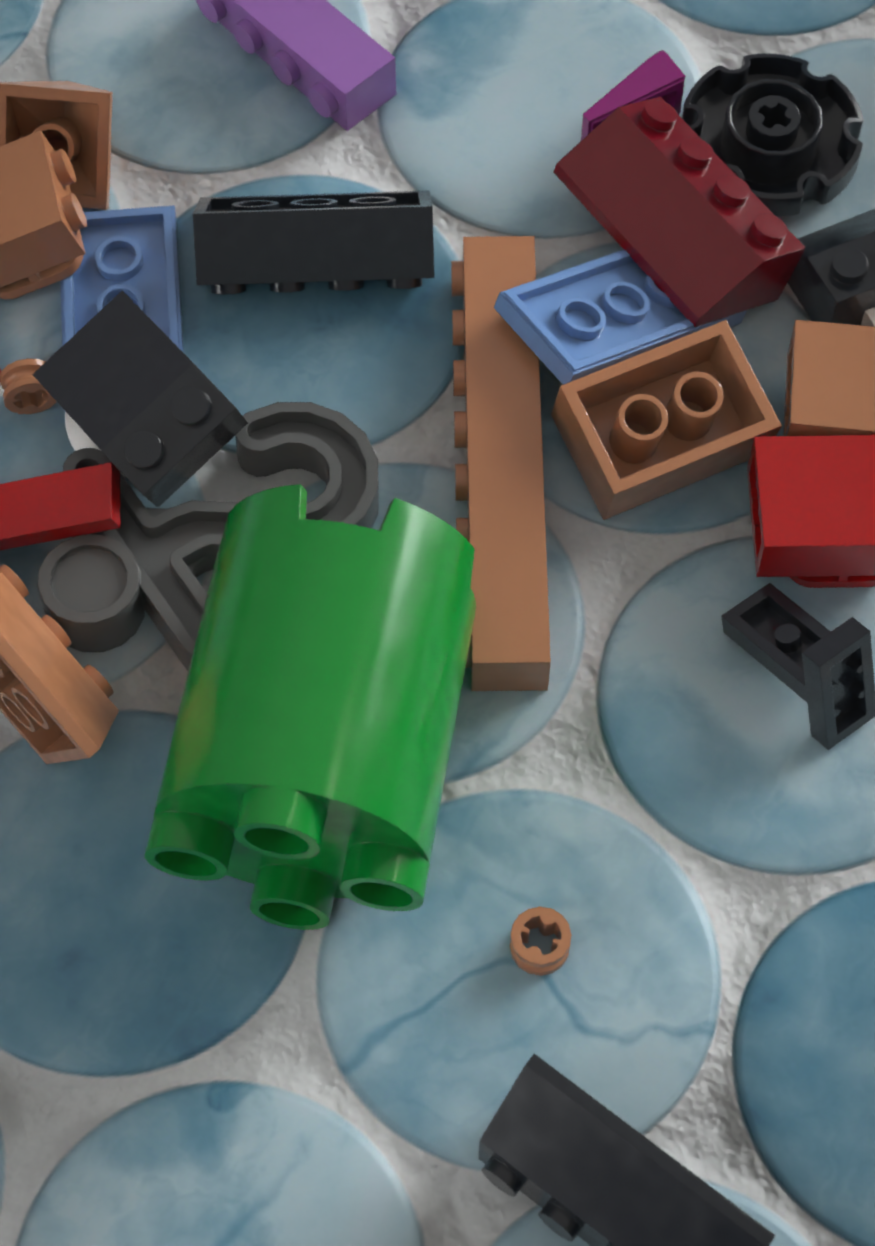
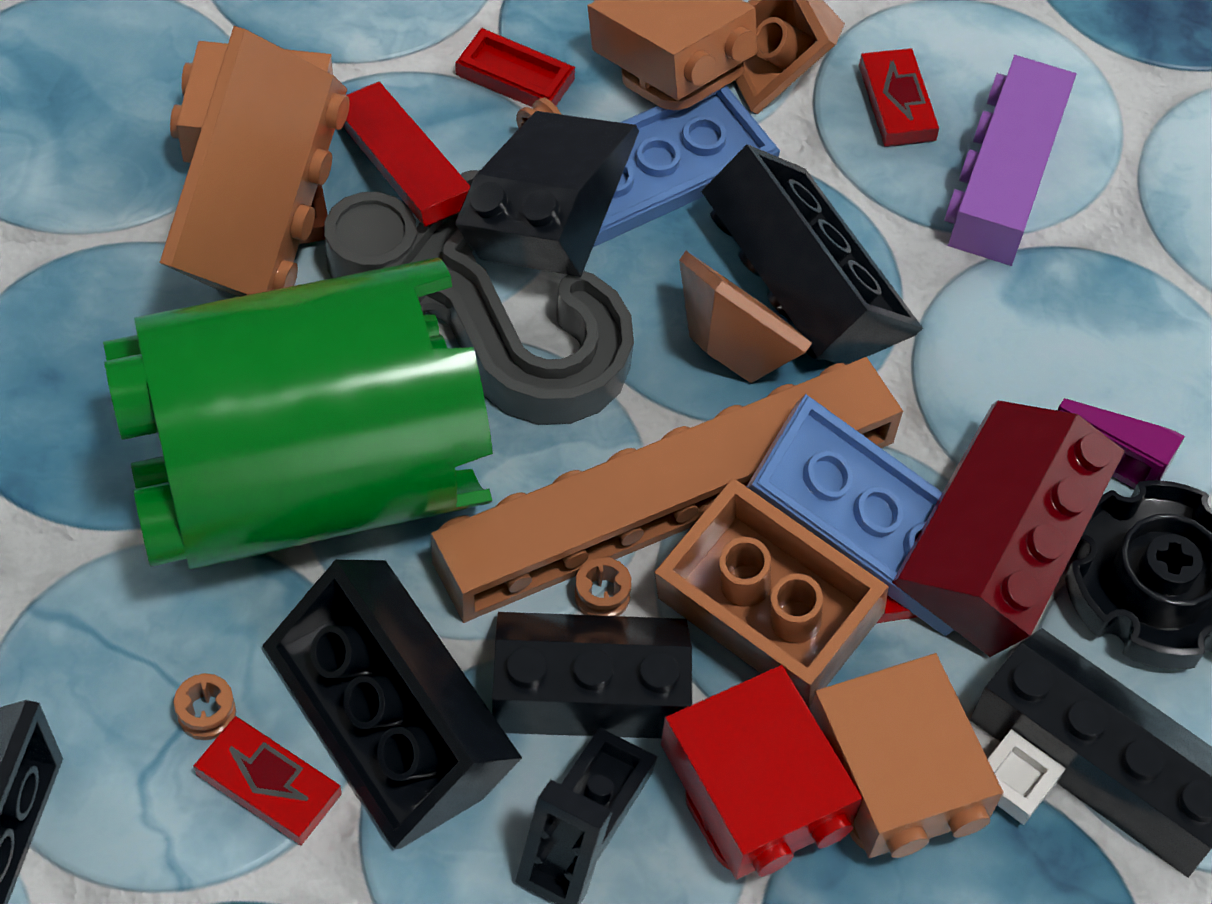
camera: 60 degrees right, 5 degrees down
(165, 85) = (898, 97): none -> red tile
(364, 325) = (734, 324): none -> nougat slope
(581, 542) = (597, 570): none -> nougat bush
(615, 776) = (389, 700): none -> black slope
(641, 914) = (268, 780): none -> red tile
(659, 598) = (590, 673): none -> black slope

